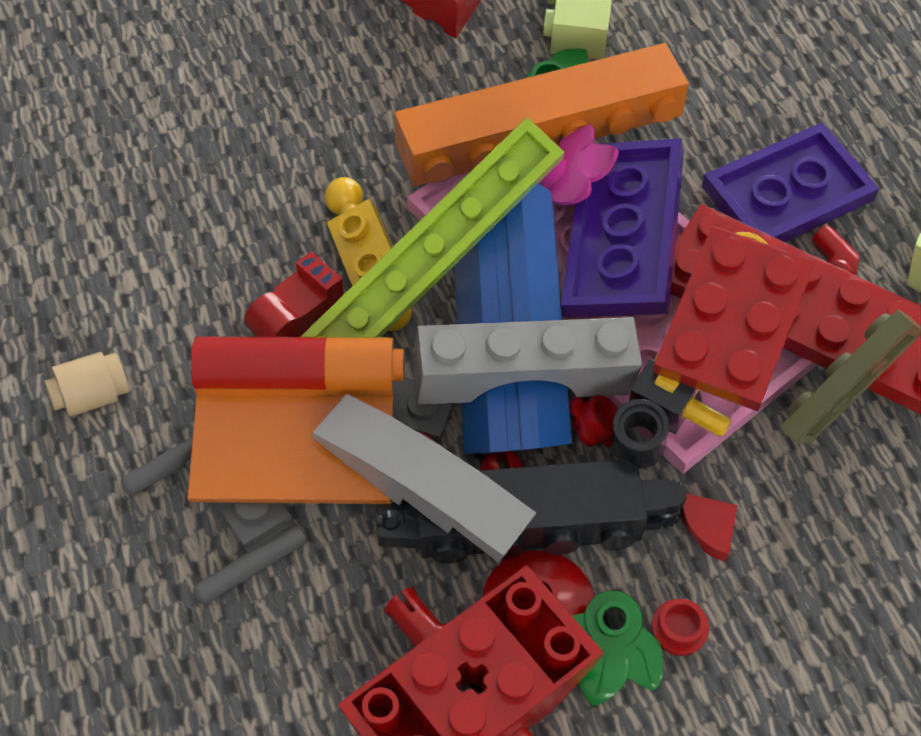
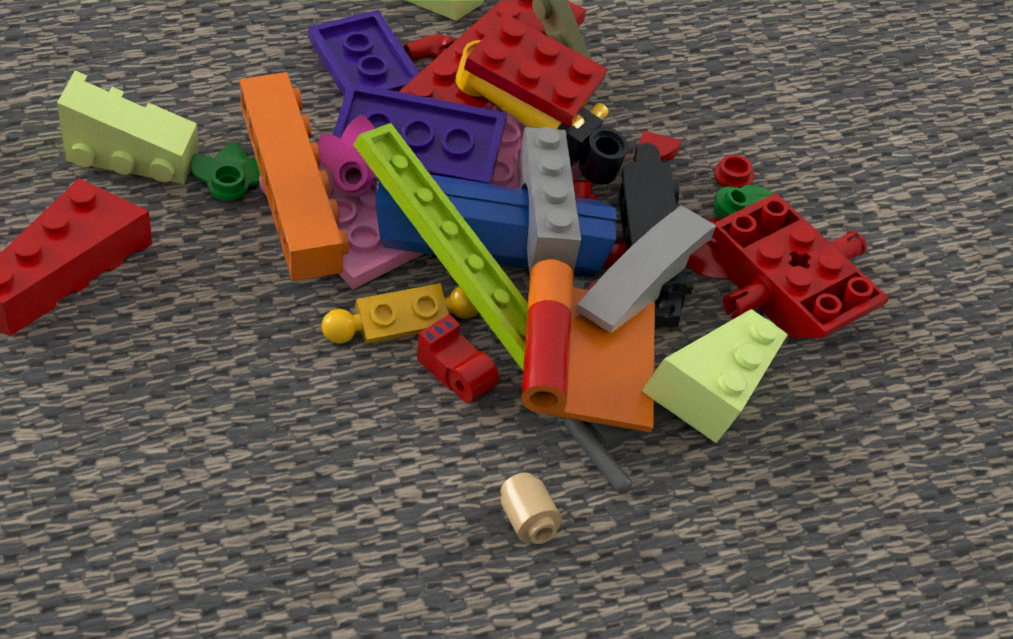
camera: 90 degrees left, 10 degrees down
(266, 571) = (717, 373): none -> yellowish green wedge

